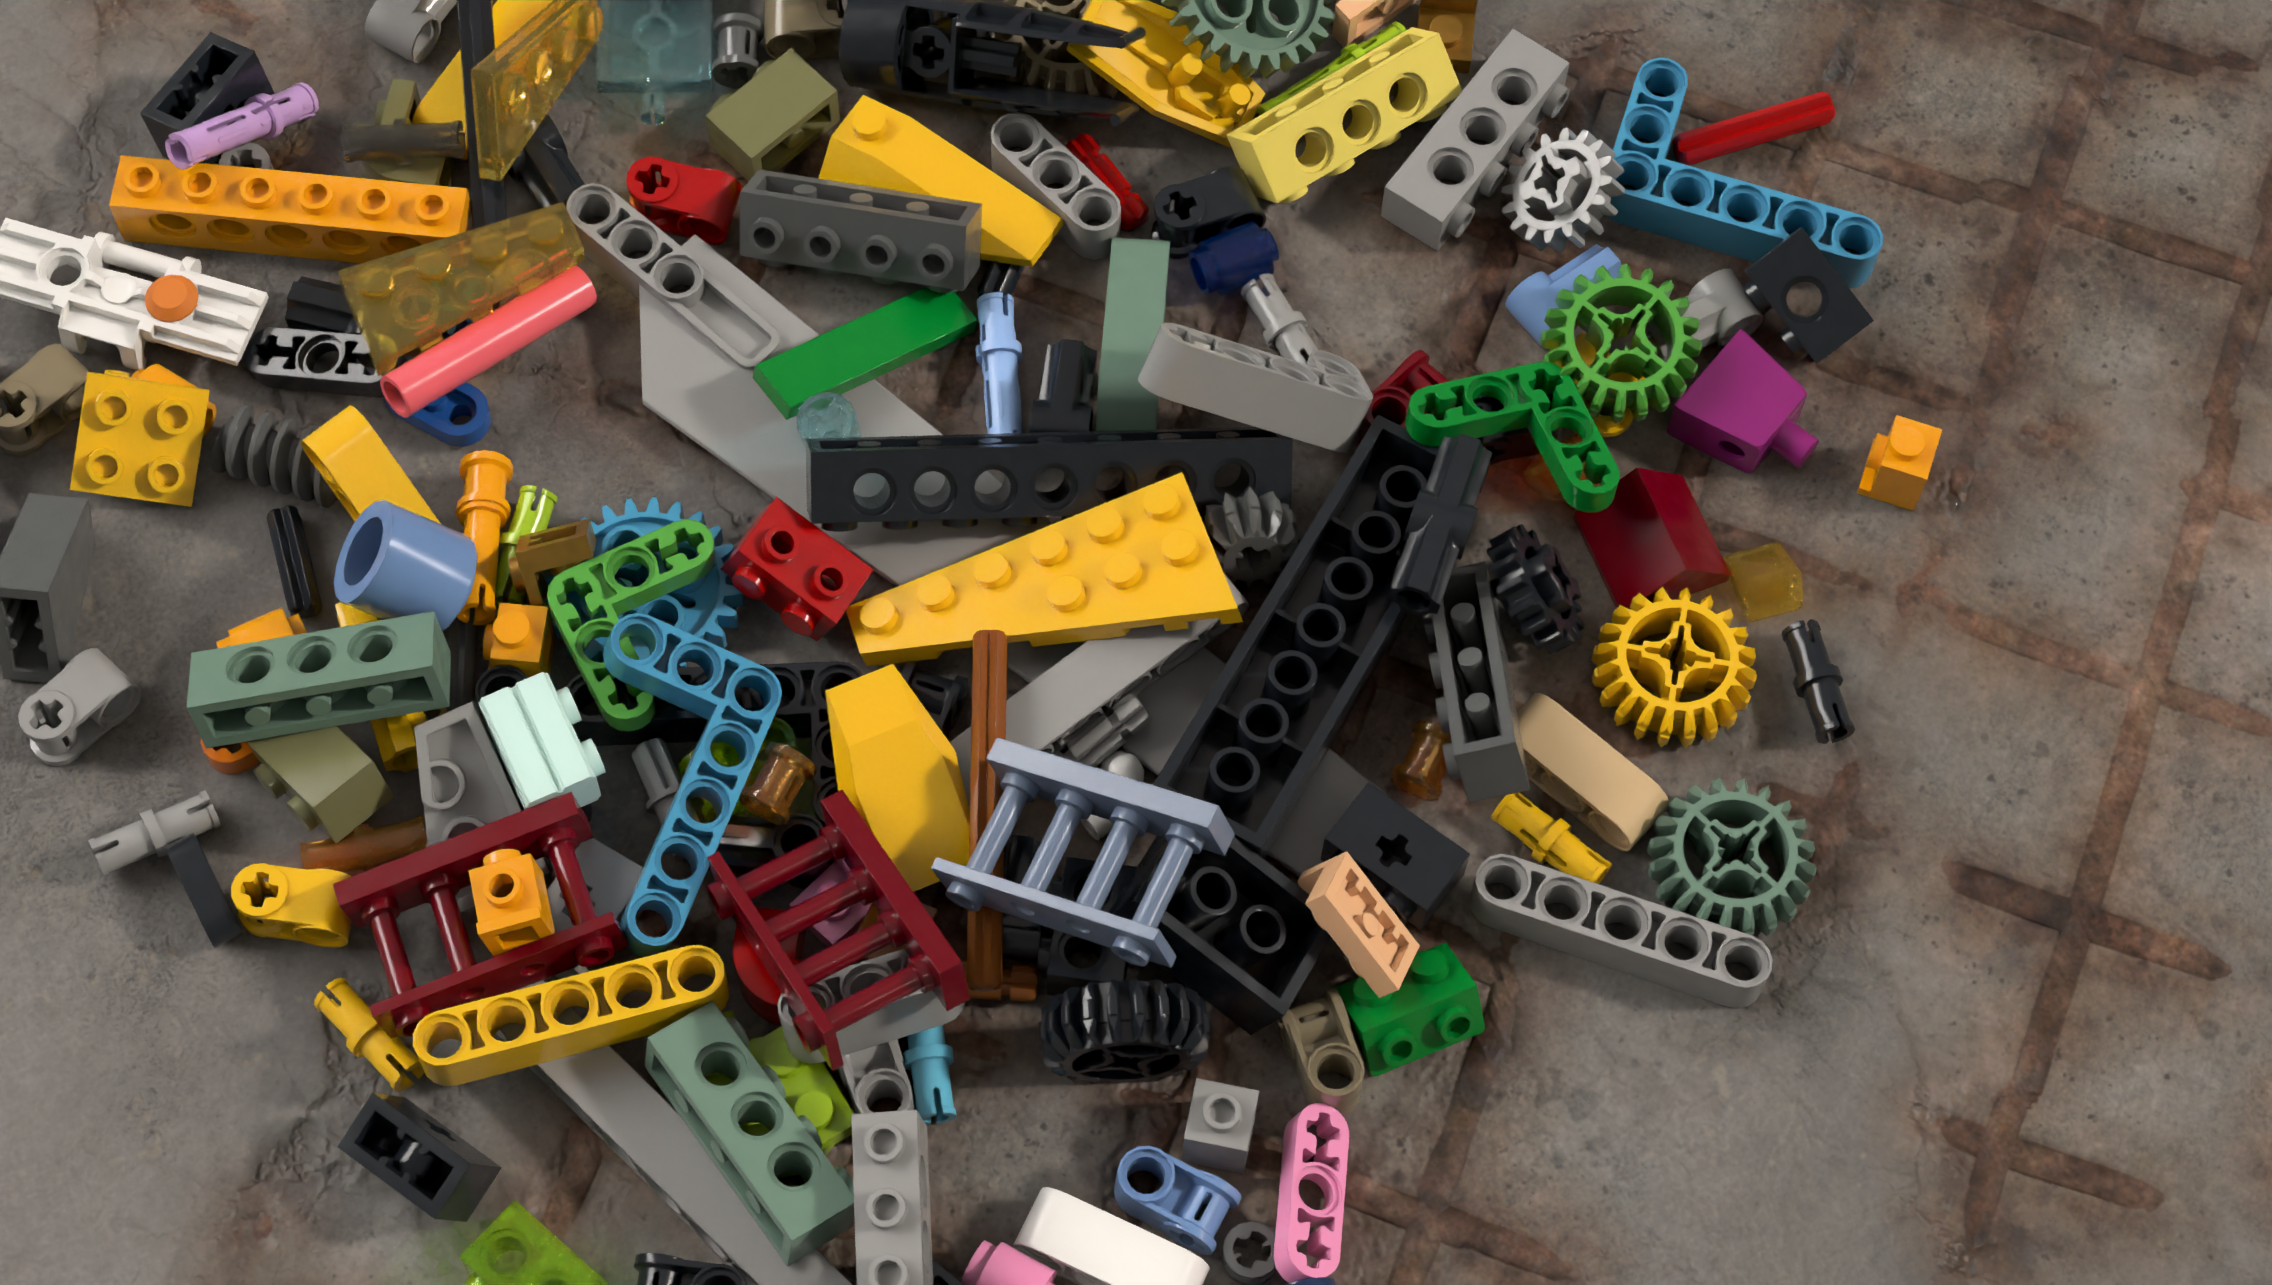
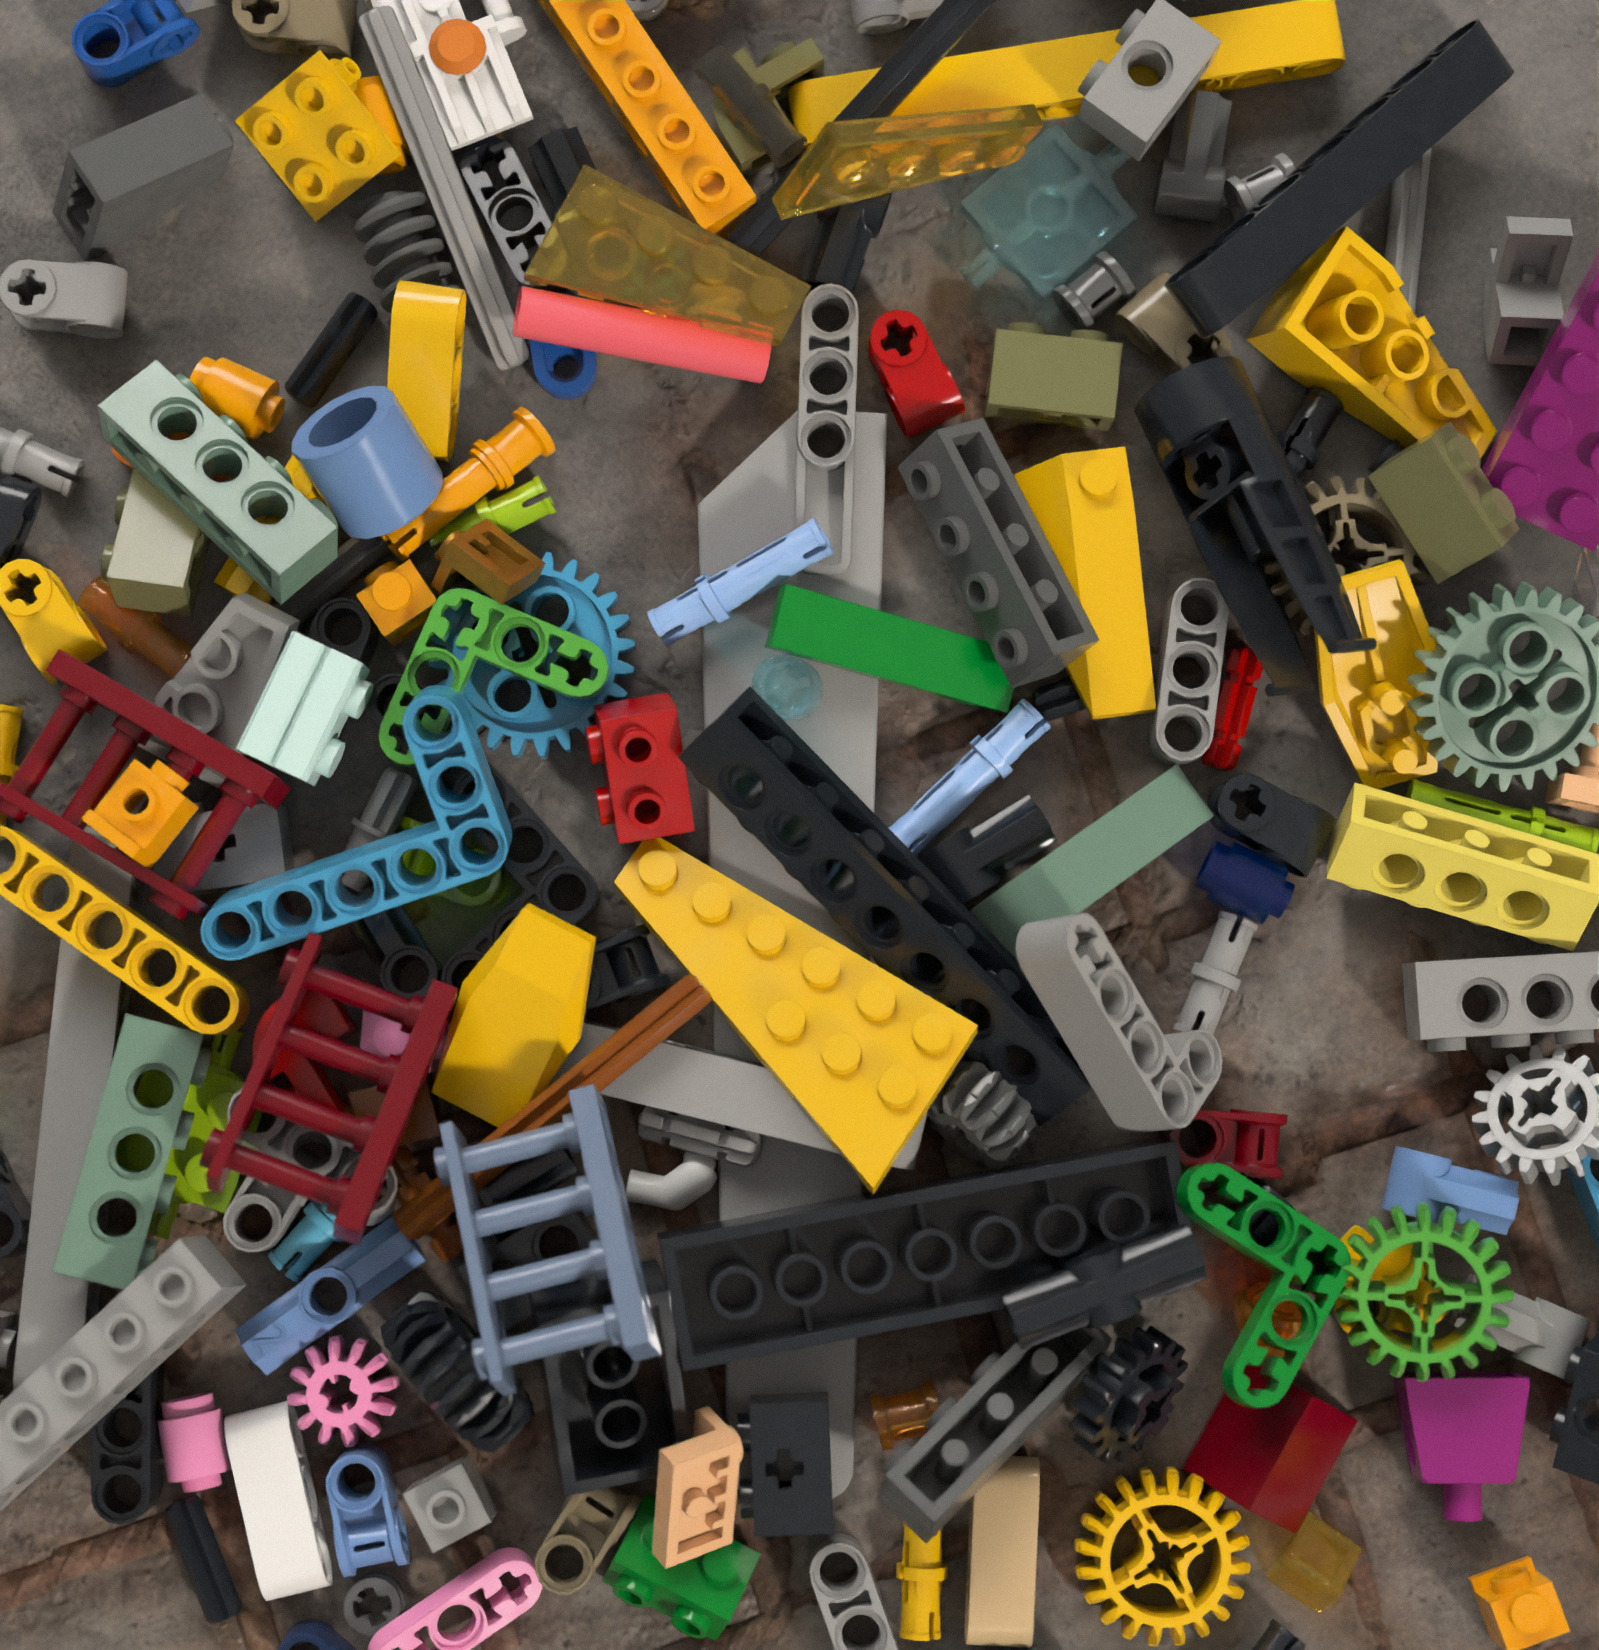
camera: 50 degrees right, 20 degrees up
(246, 383) = (443, 185): none -> light grey axle
(720, 427) = (731, 587): none -> light blue pin
(777, 783) = (433, 923): clear orange bush -> none
(987, 1130) = (299, 1319): none -> medium blue piece
(1076, 1122) = (322, 1398): none -> bright pink gear

